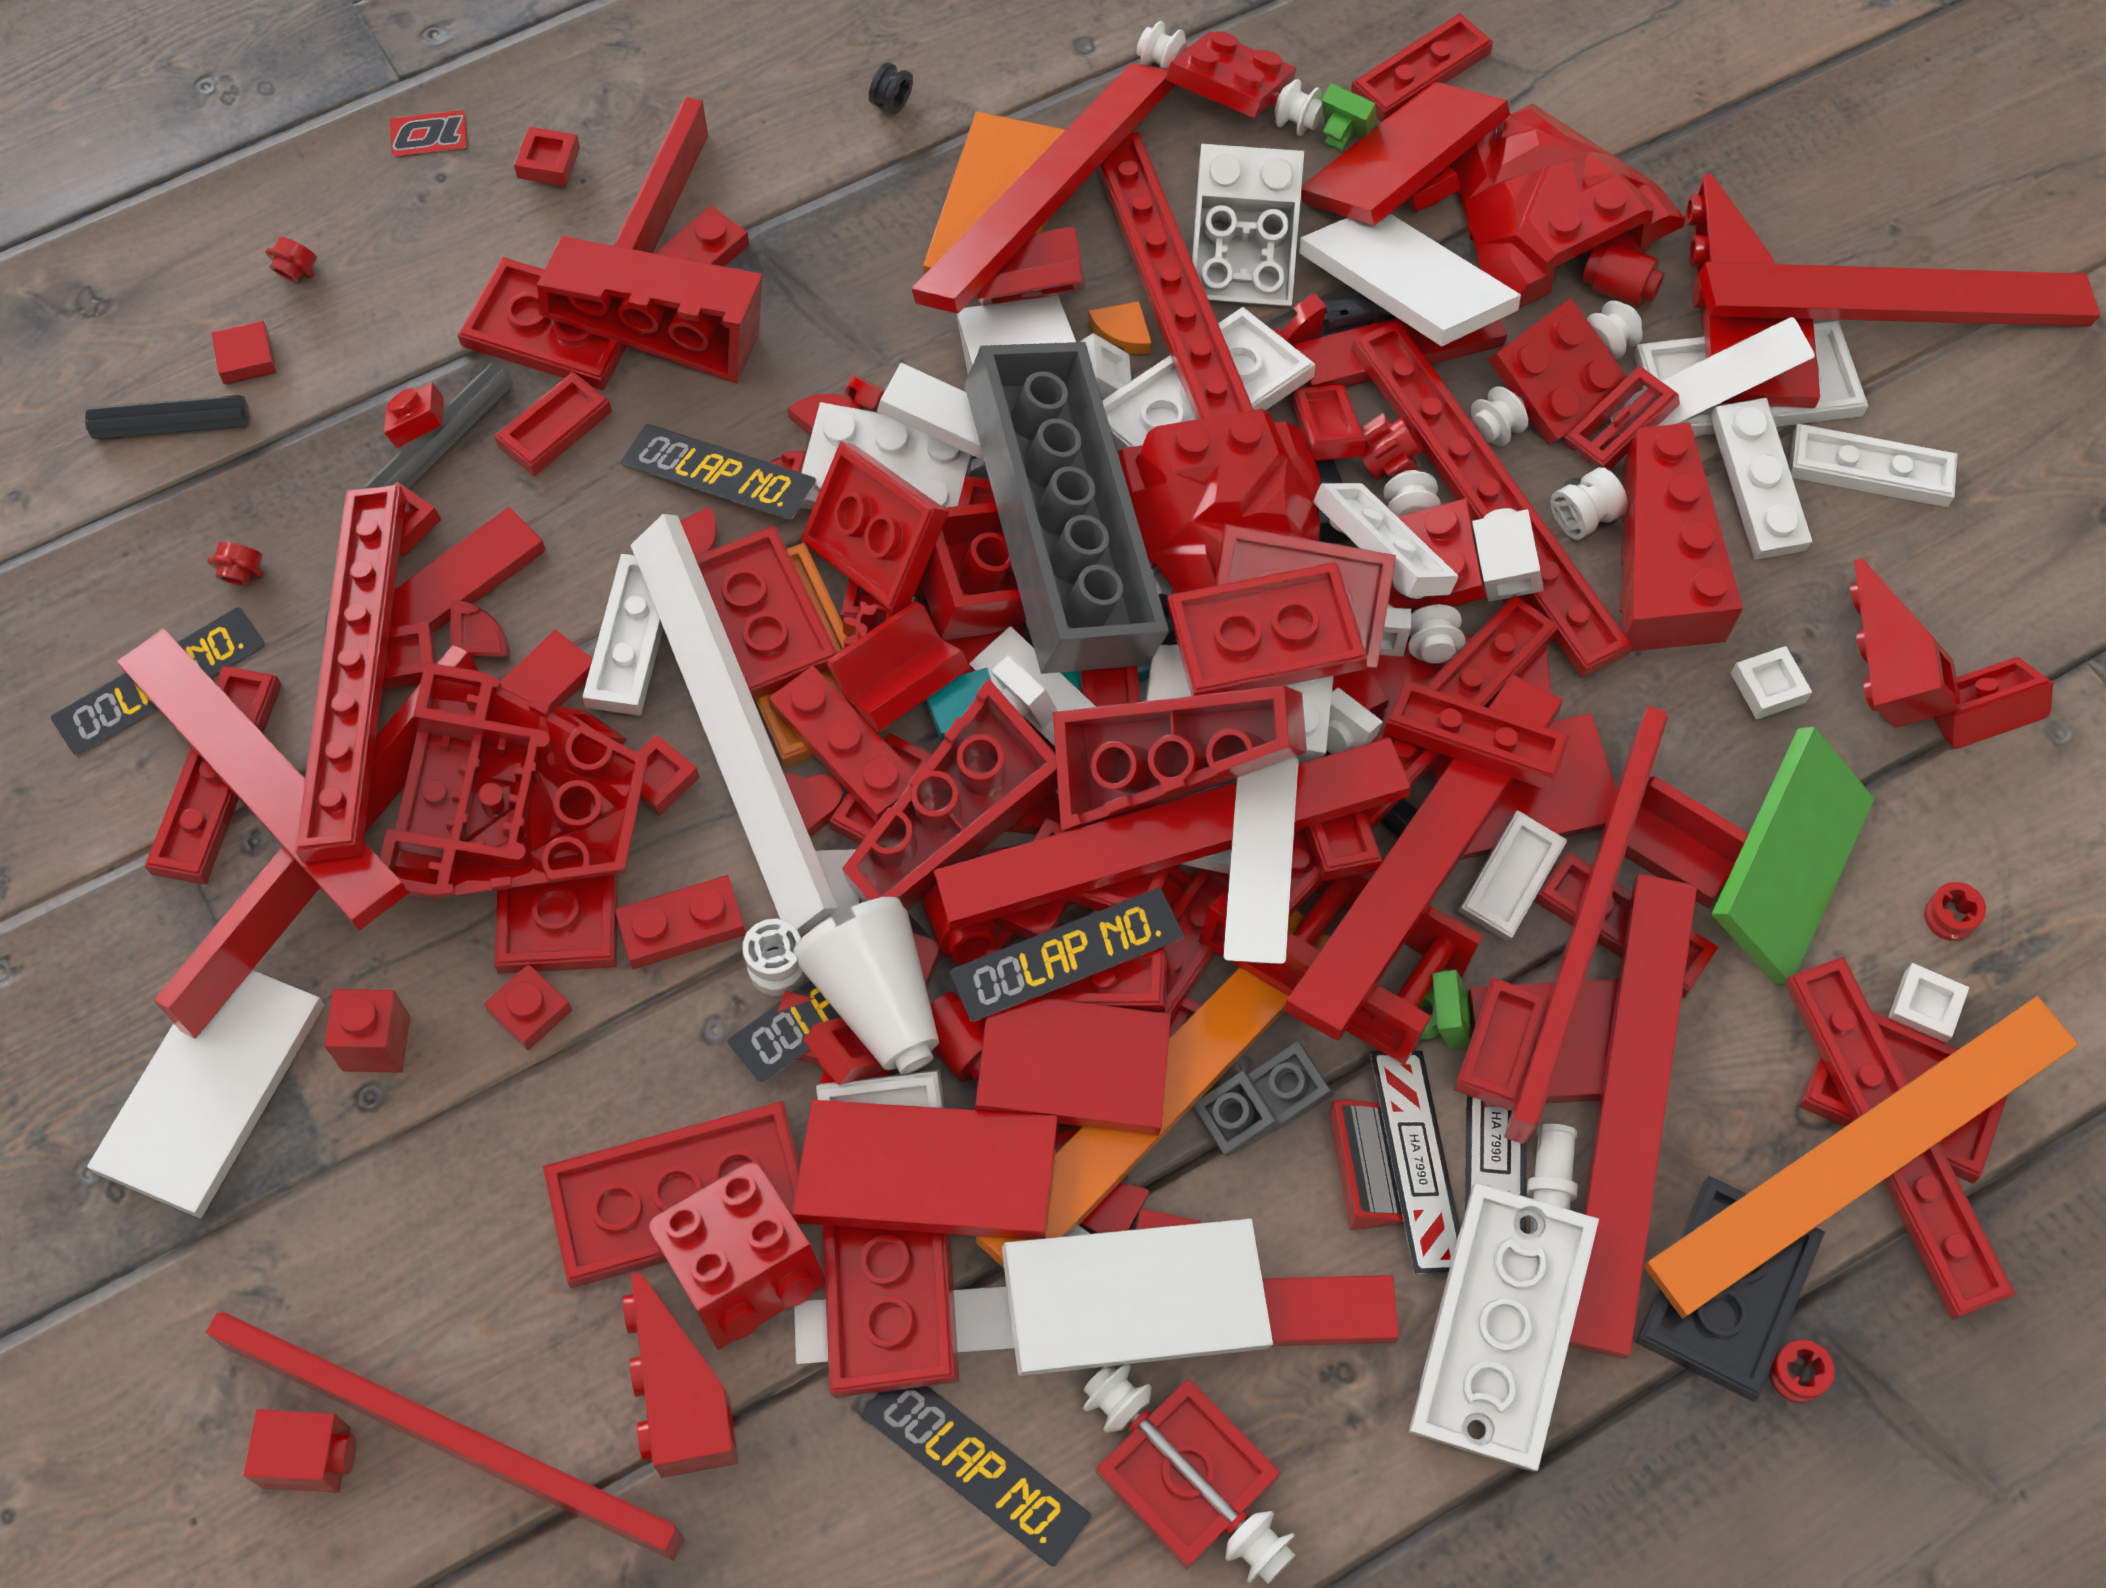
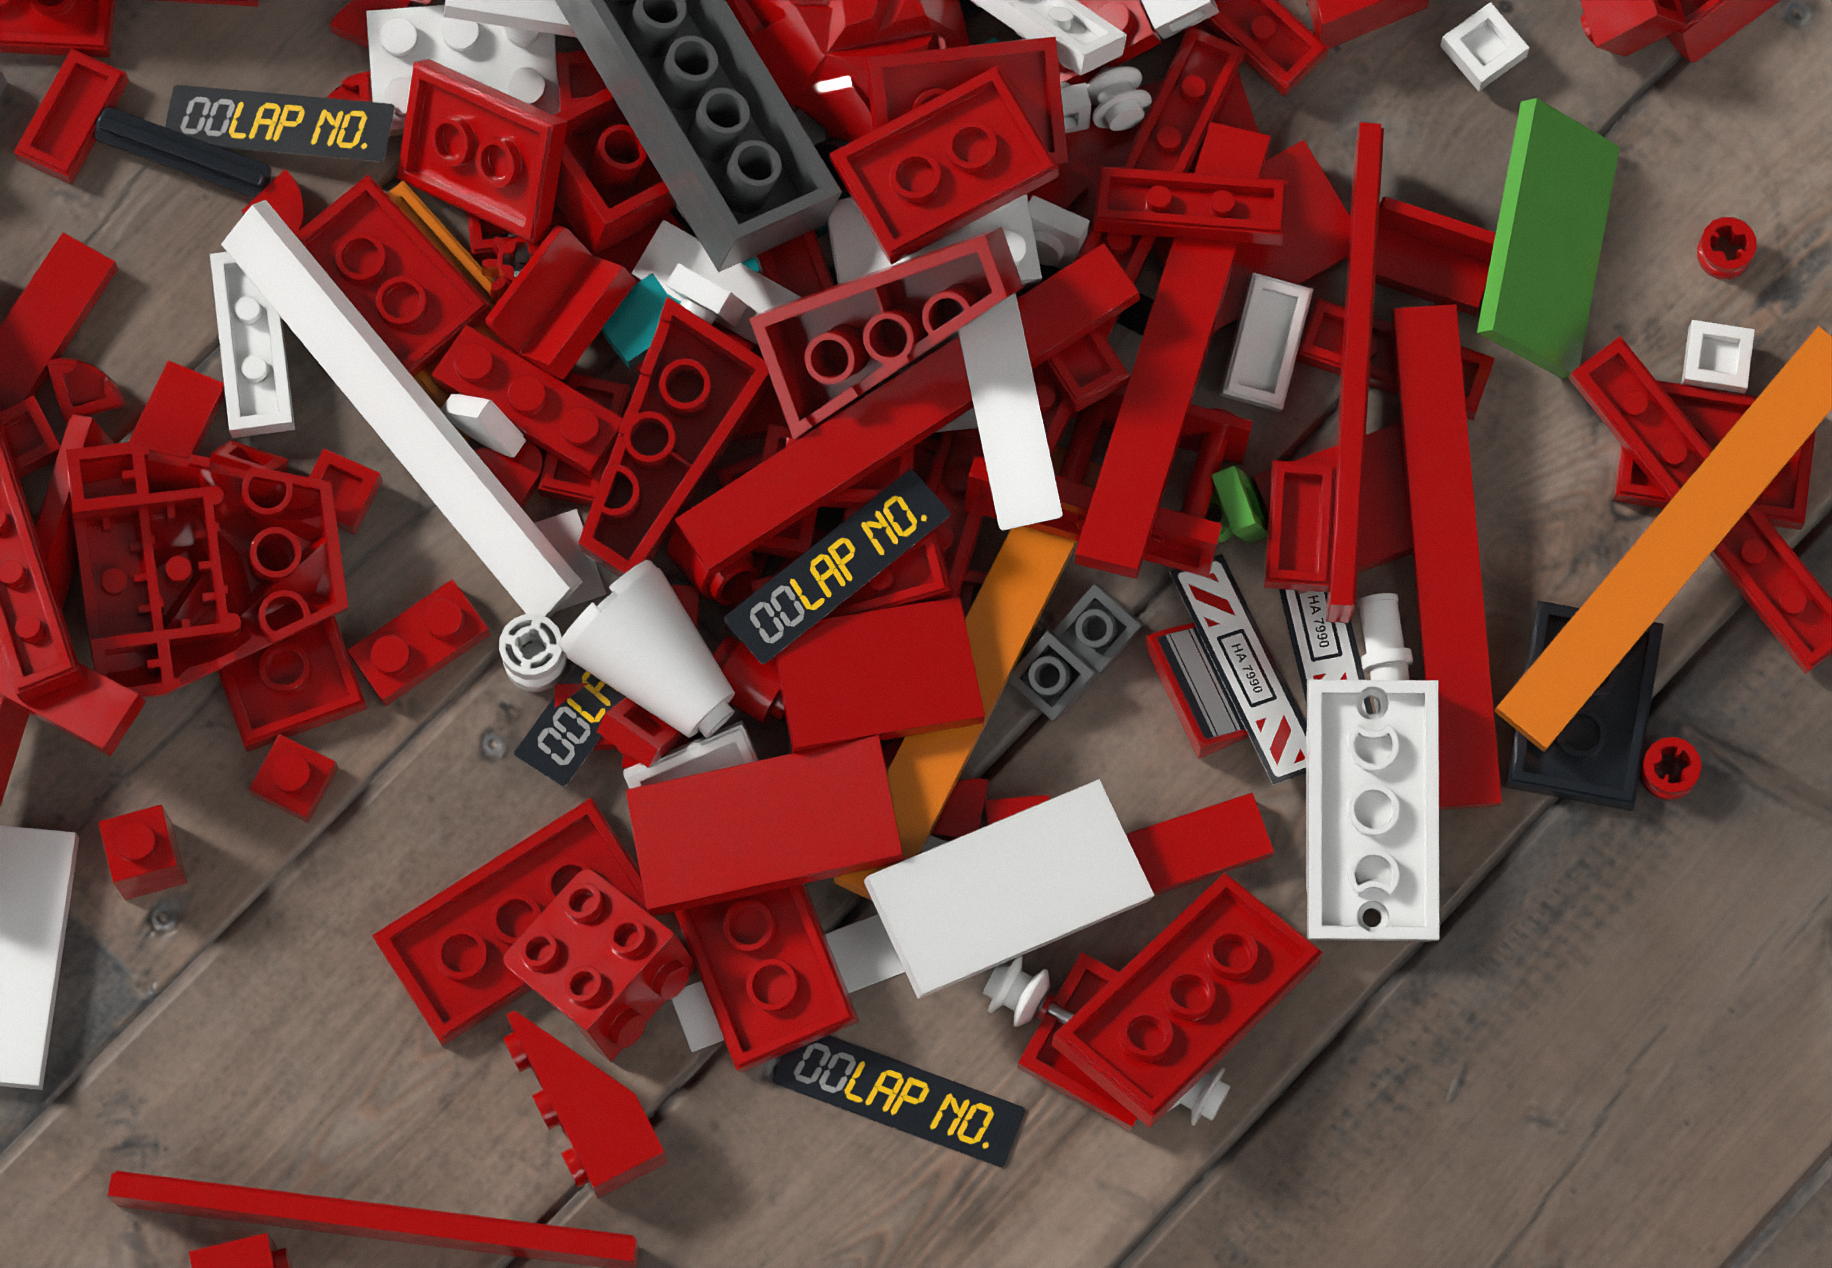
camera: 15 degrees left, 10 degrees up
(629, 472) = (182, 152): none -> black axle
(800, 751) = (484, 423): none -> white tile
(1275, 1456) = (1186, 999): none -> red tile

